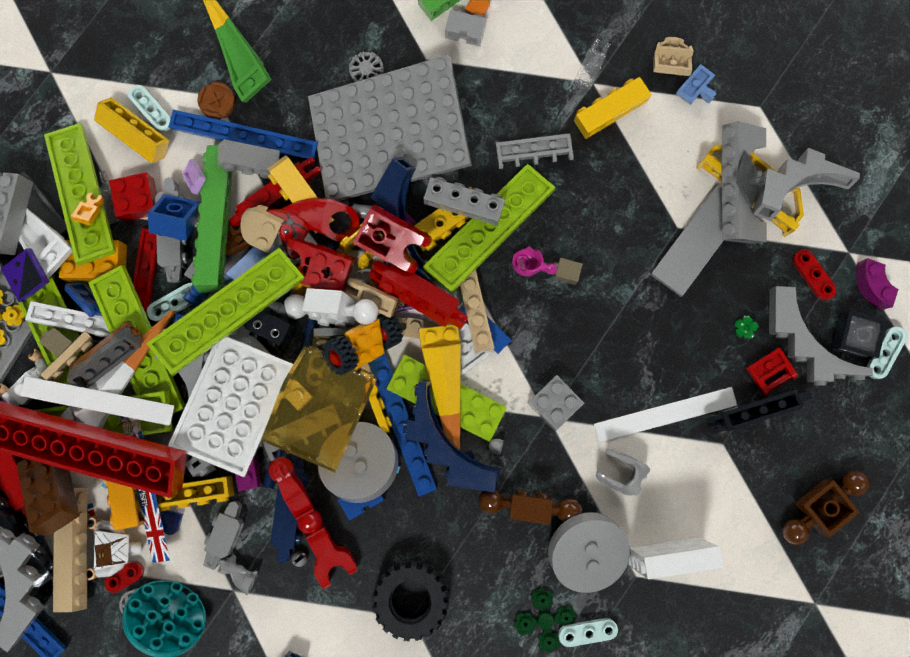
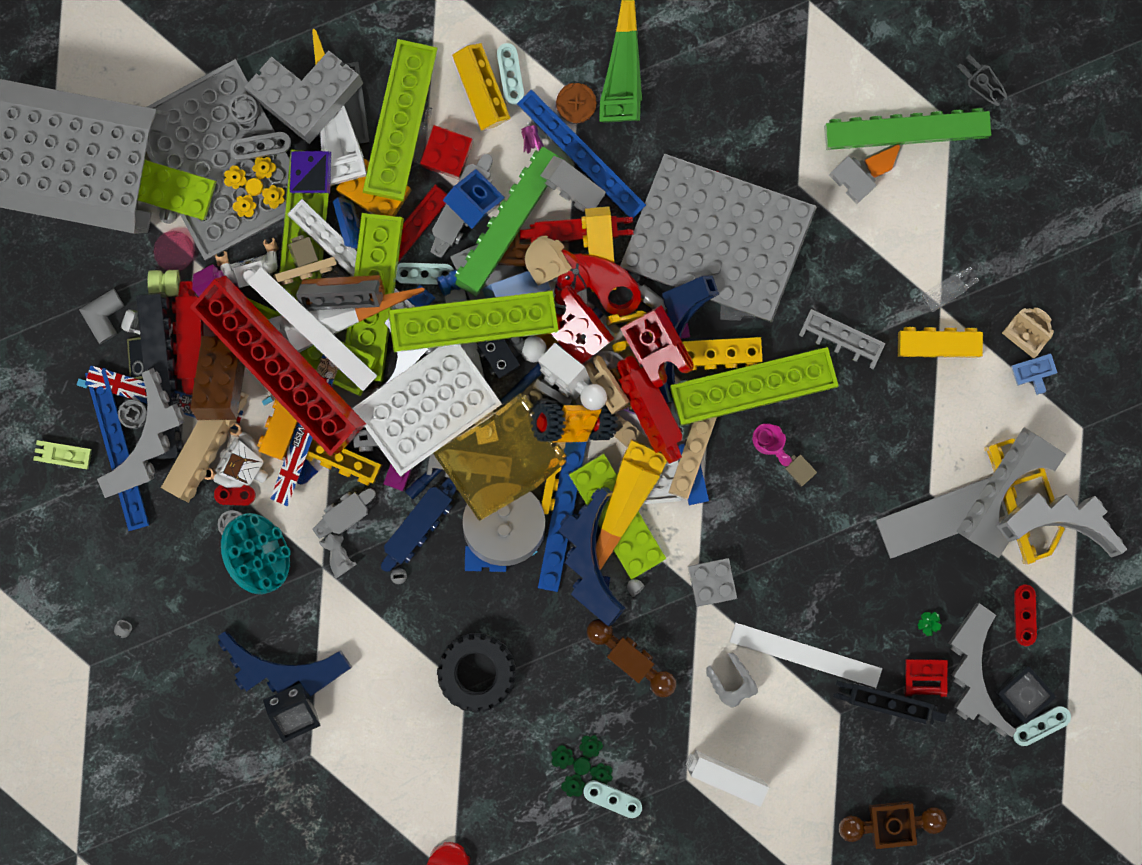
camera: 30 degrees right, 5 degrees up
(87, 212) = (401, 148): light orange plate -> none
(193, 176) = (512, 168): lavender tile -> none
(195, 146) = (531, 138): none -> flat silver piece
(310, 523) = (429, 551): red piece -> none
(365, 68) = (735, 159): light grey wheel -> none
(464, 201) = (744, 349): light grey brick -> none
(588, 552) = (657, 730): light grey brick -> none
(748, 179) = (1012, 492): dark grey piece -> none
(874, 284) = (1071, 658): magenta brick -> none

